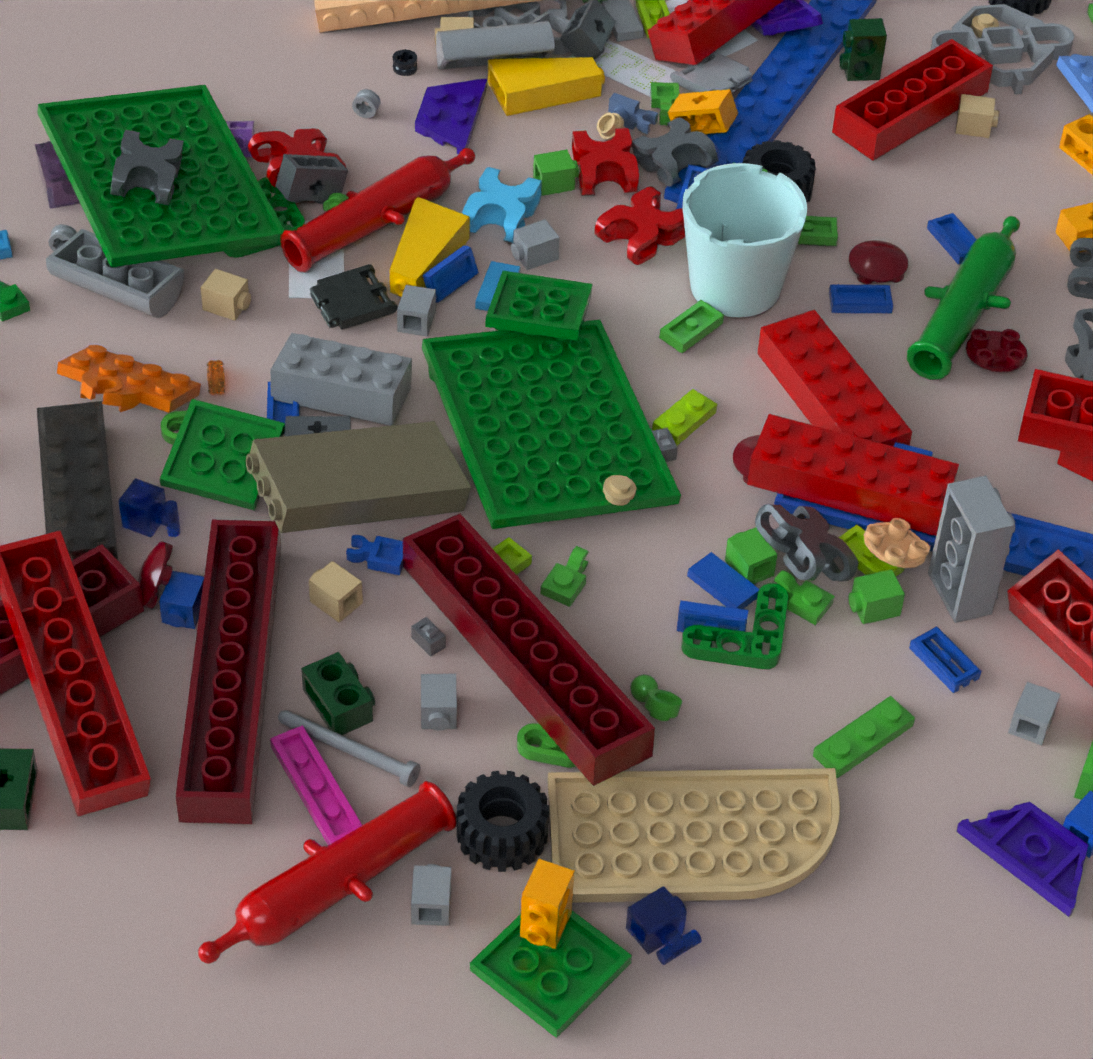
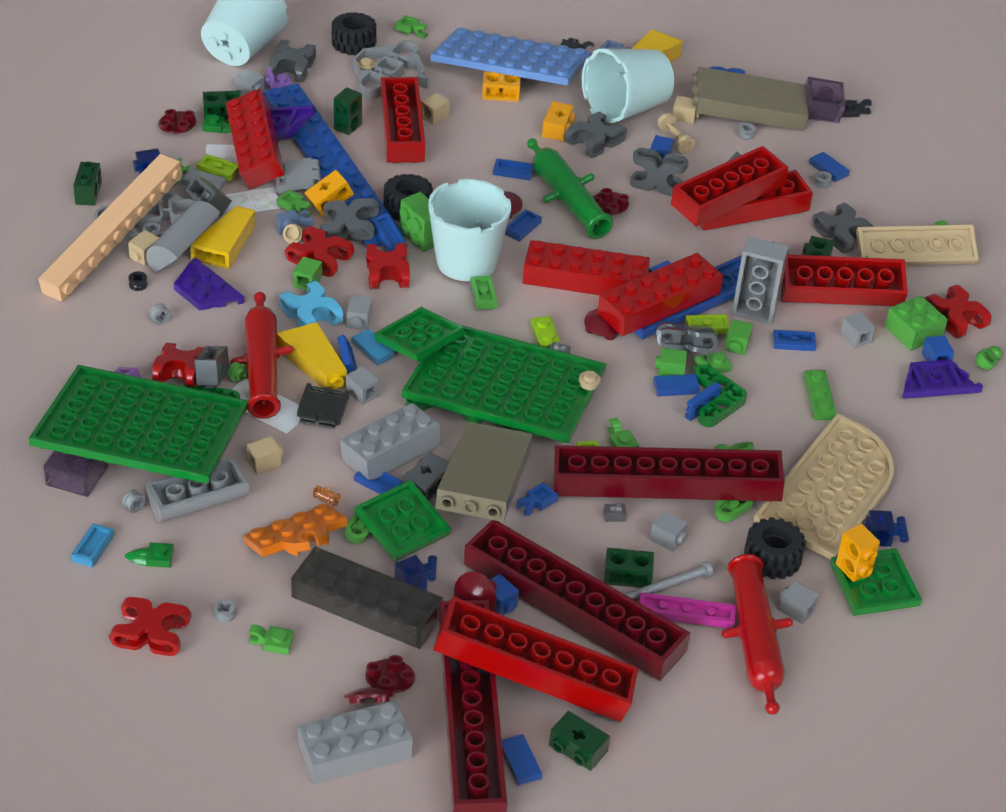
camera: 55 degrees left, 5 degrees down
(147, 167) = (146, 420): dark grey piece -> none
(335, 591) = (551, 530): tan brick -> none
(896, 543) = (716, 308): light nougat dish -> none

